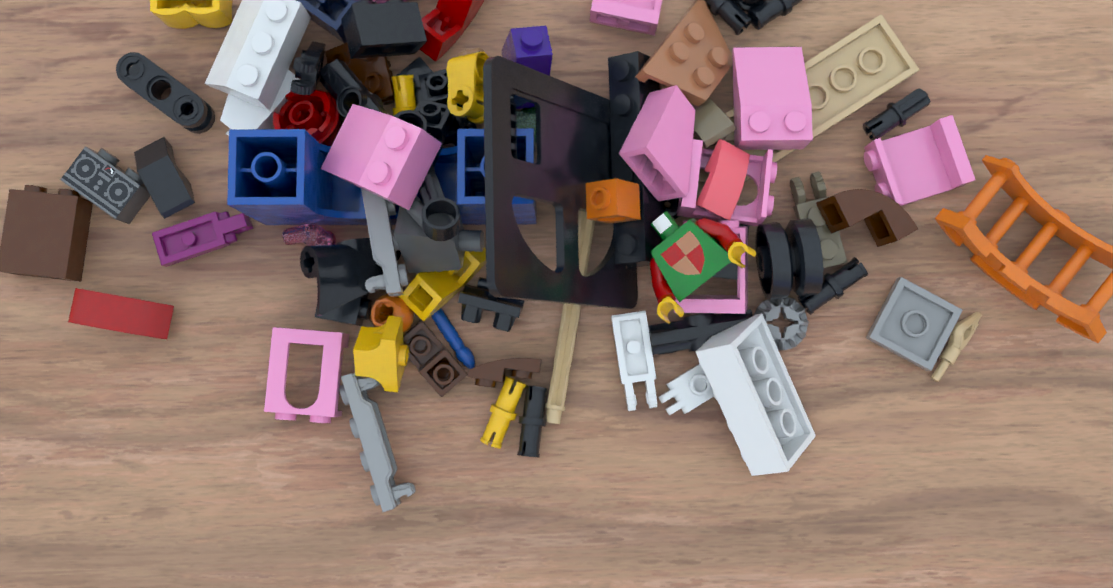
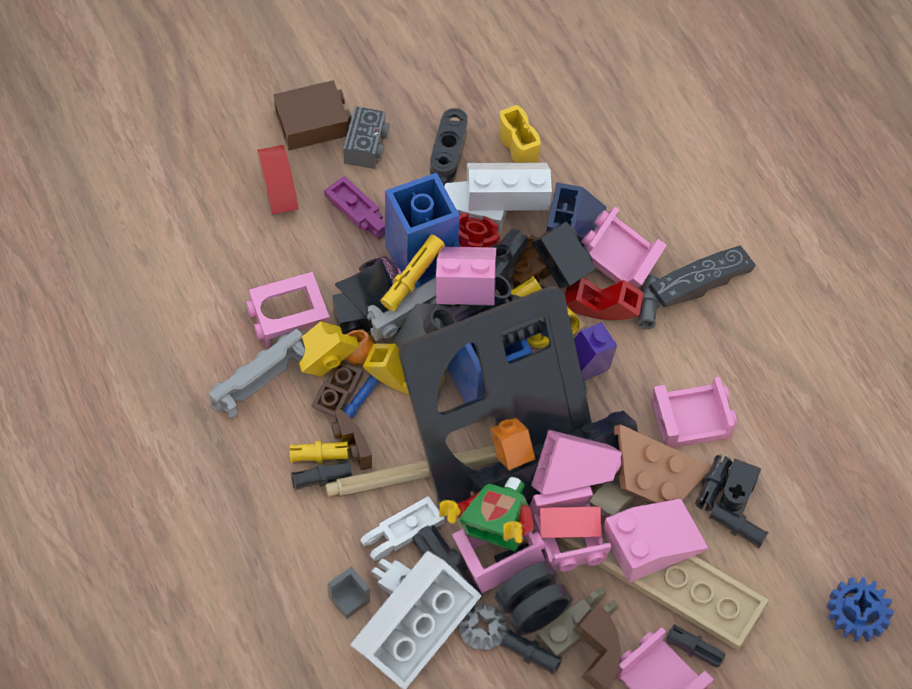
camera: 60 degrees right, 25 degrees down
(163, 178) = (386, 168): black slope -> none
(308, 68) = (510, 218): black hinge -> none
(349, 218) = (405, 281): none -> yellow pin
(478, 298) = (400, 421): black hips -> none
(688, 450) = (349, 592): none -> dark grey panel

